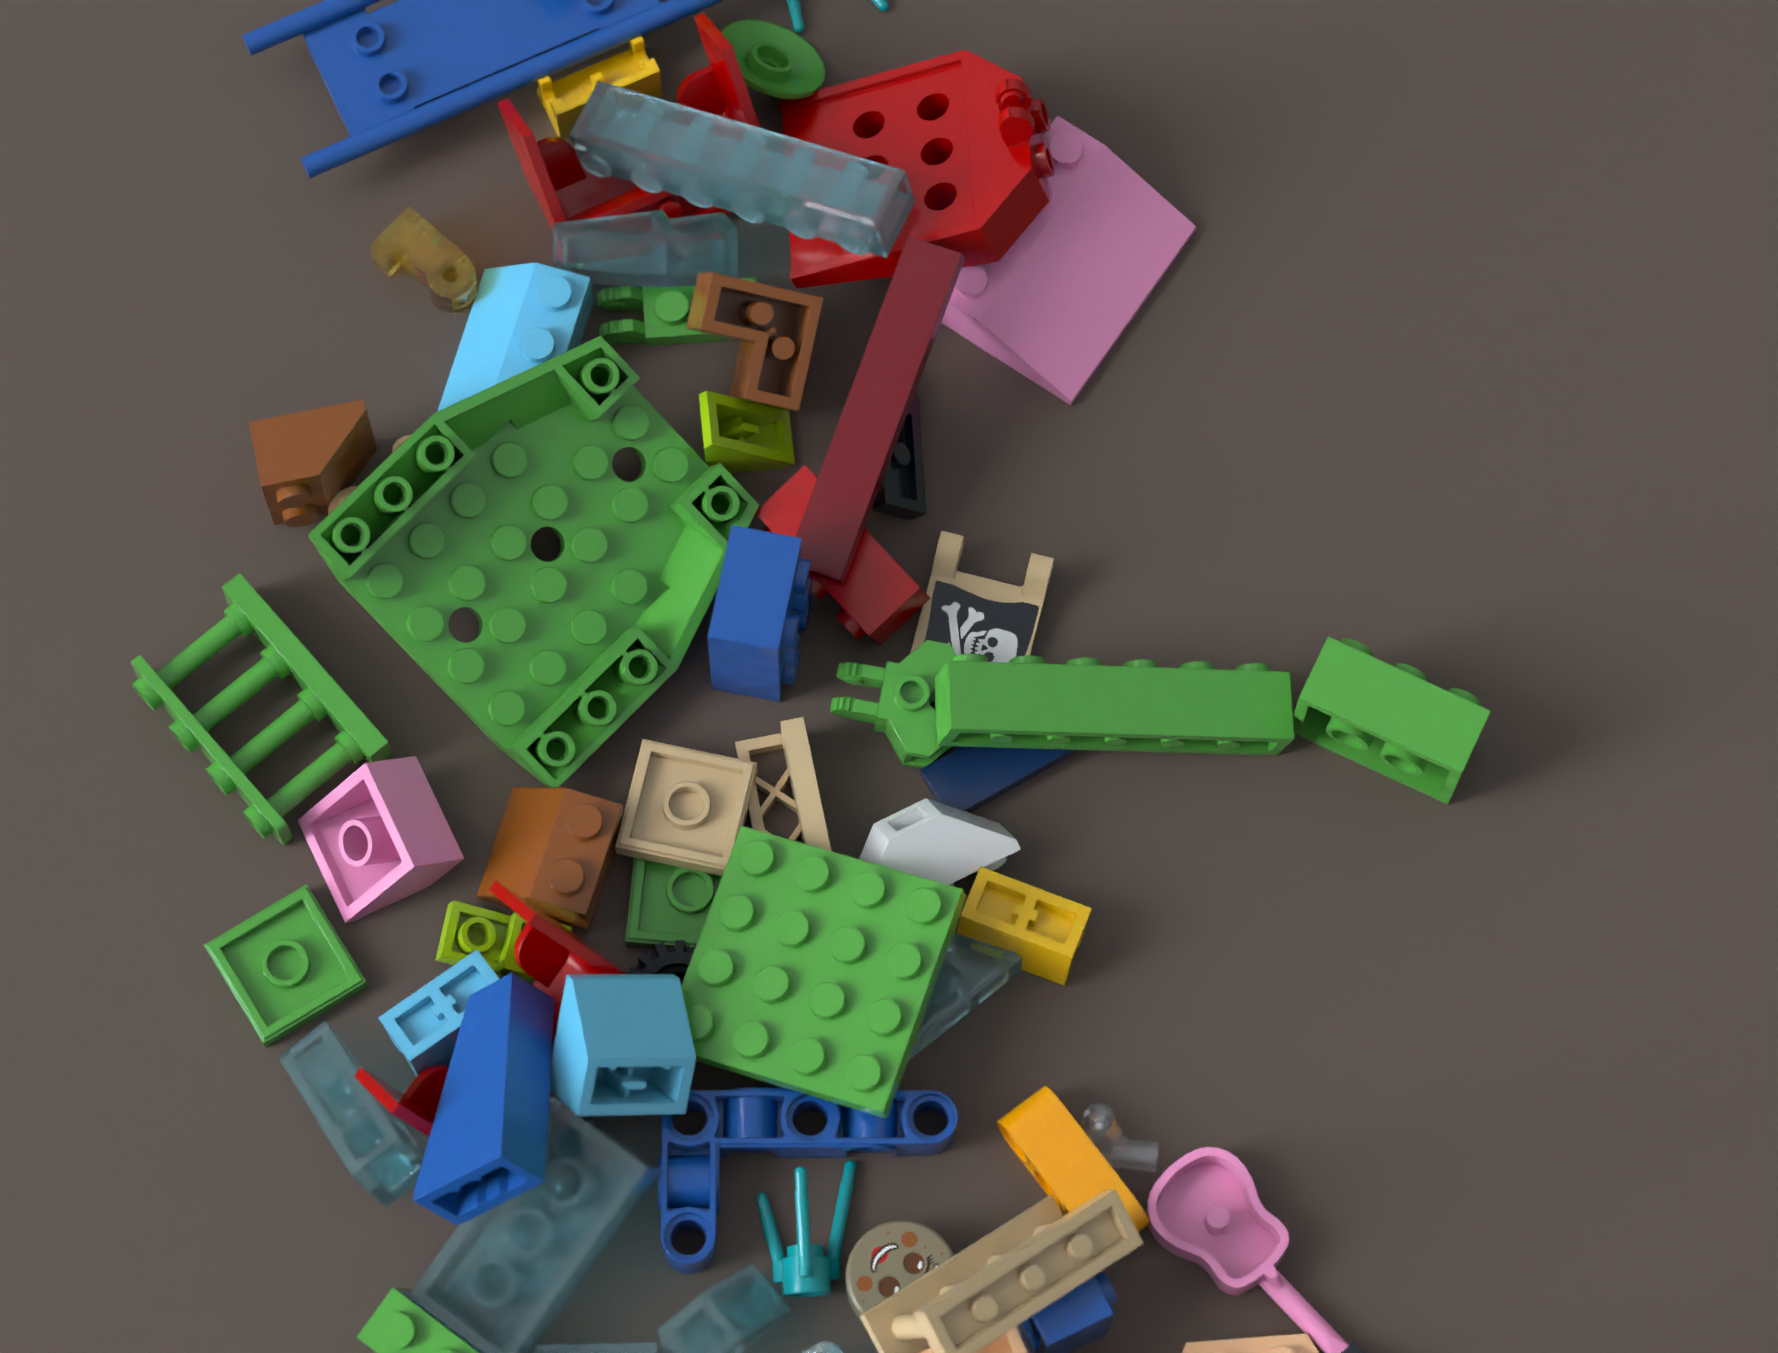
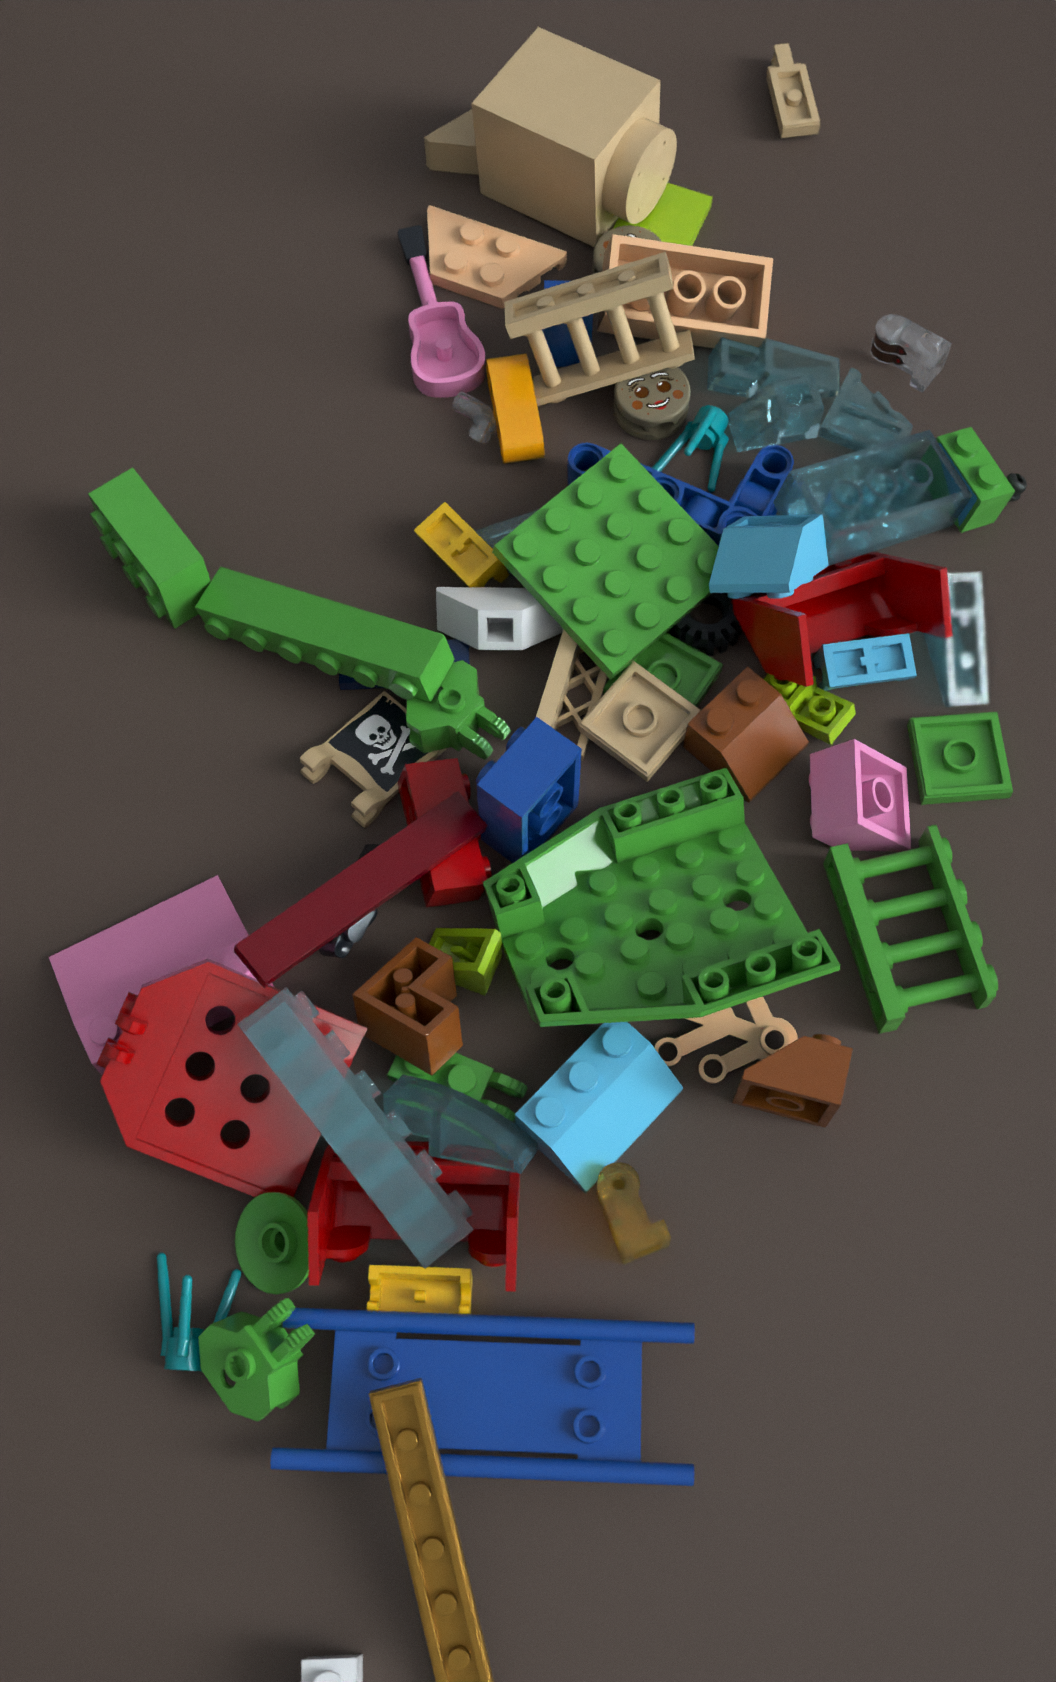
camera: 150 degrees left, 5 degrees down
(493, 1104) = (871, 557): blue slope -> none

